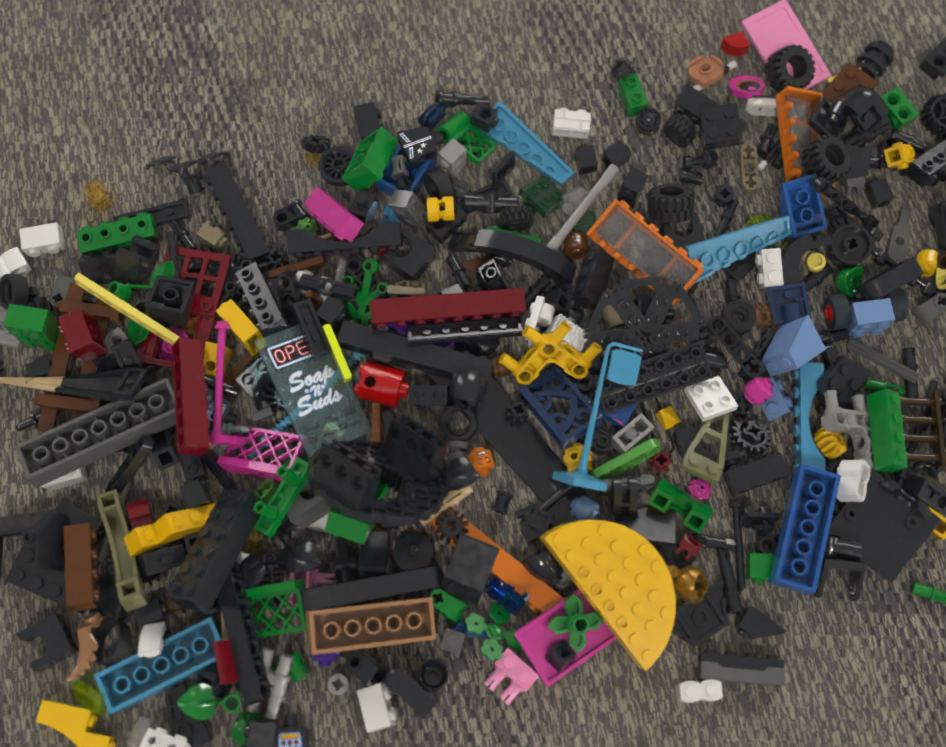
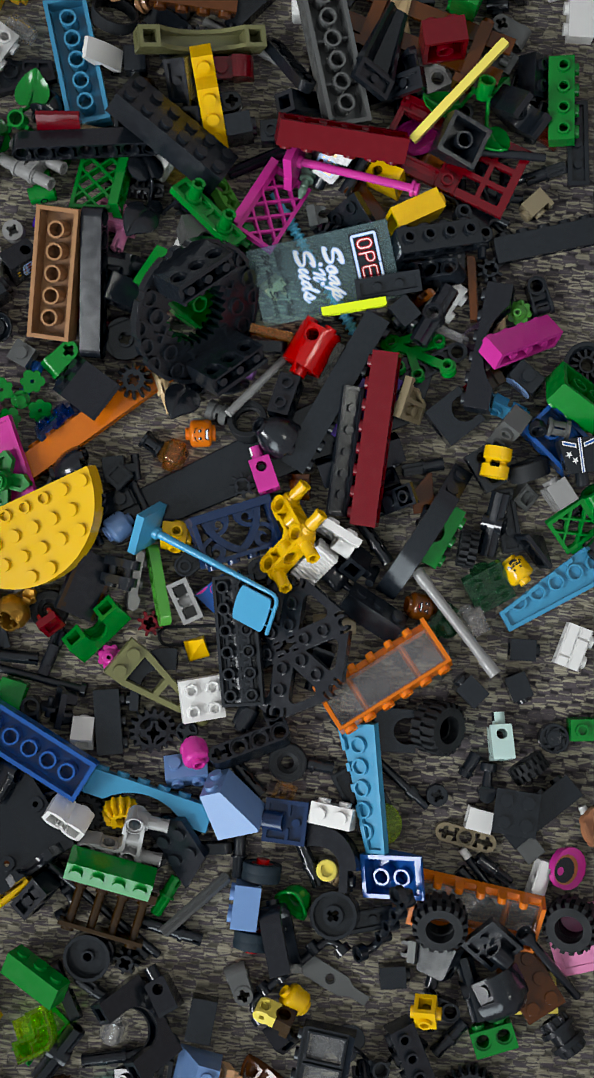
camera: 105 degrees right, 15 degrees up
(427, 424) = (234, 407): none -> light grey bar
(506, 480) = (173, 454): none -> clear orange head
(507, 389) = (265, 480): none -> dark pink torso
(522, 177) = (517, 570): none -> yellow head
(664, 156) = (499, 748): none -> light aqua torso
(732, 159) = (478, 819): none -> white brick
(773, 493) = (83, 732): none -> white brick
(813, 95) = (527, 937): none -> black piece

